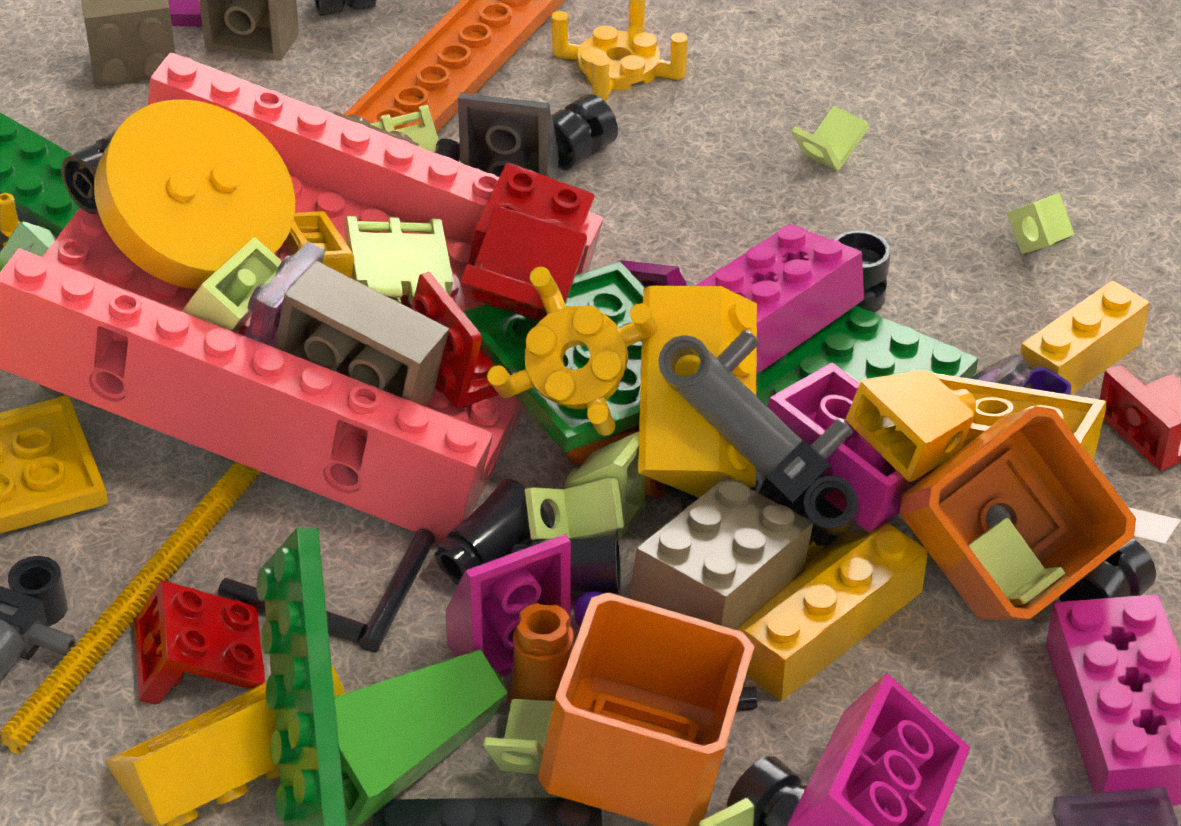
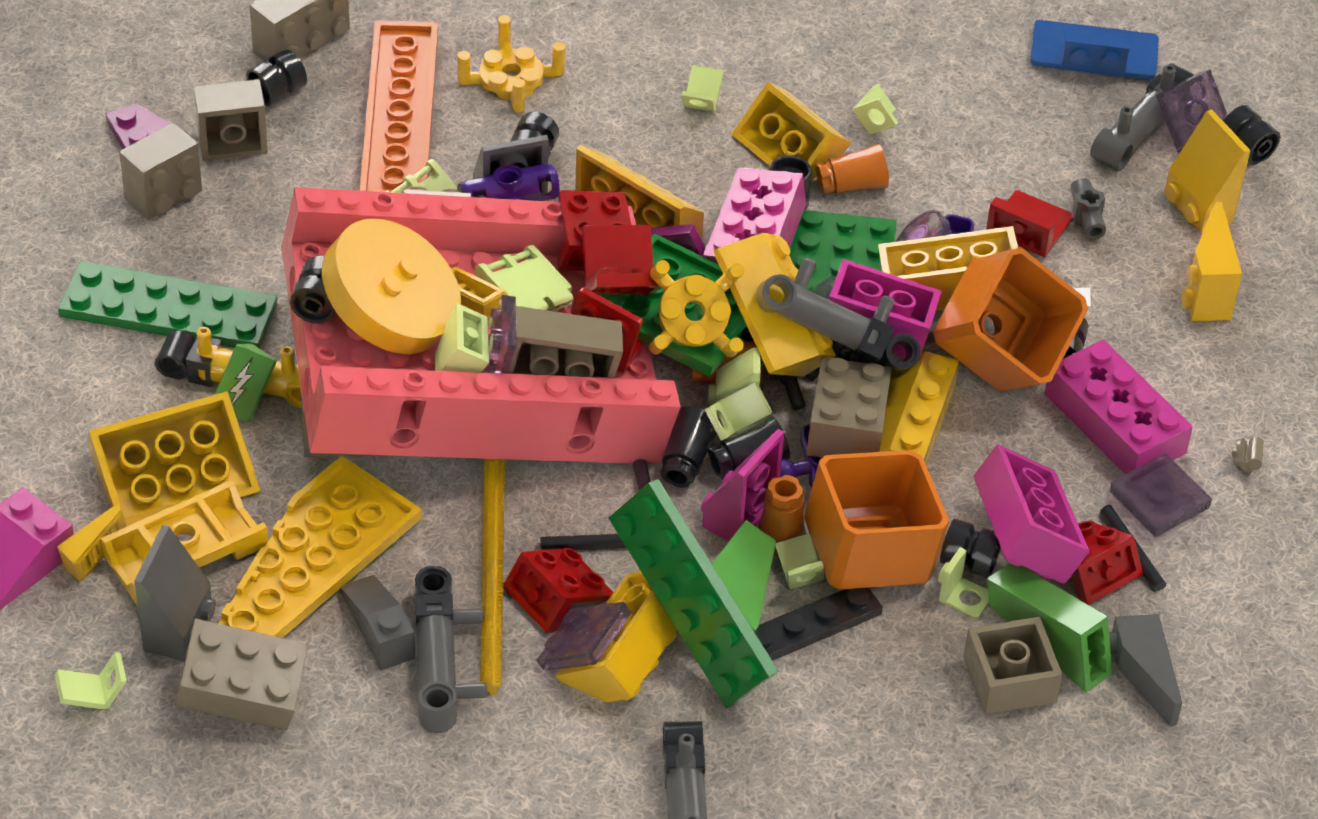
camera: 30 degrees left, 5 degrees up
(177, 711) = (583, 636): none -> plate
(488, 150) = (515, 183): none -> dark purple piece
(645, 217) = (649, 201): none -> yellow slope
(912, 420) = (919, 280): yellow torso -> none
(913, 213) = (784, 126): none -> yellow slope
(957, 284) = (854, 171): none -> orange plant
(1013, 563) = (1020, 349): yellowish green bracket -> none
(1089, 335) = (957, 178): yellow brick -> none

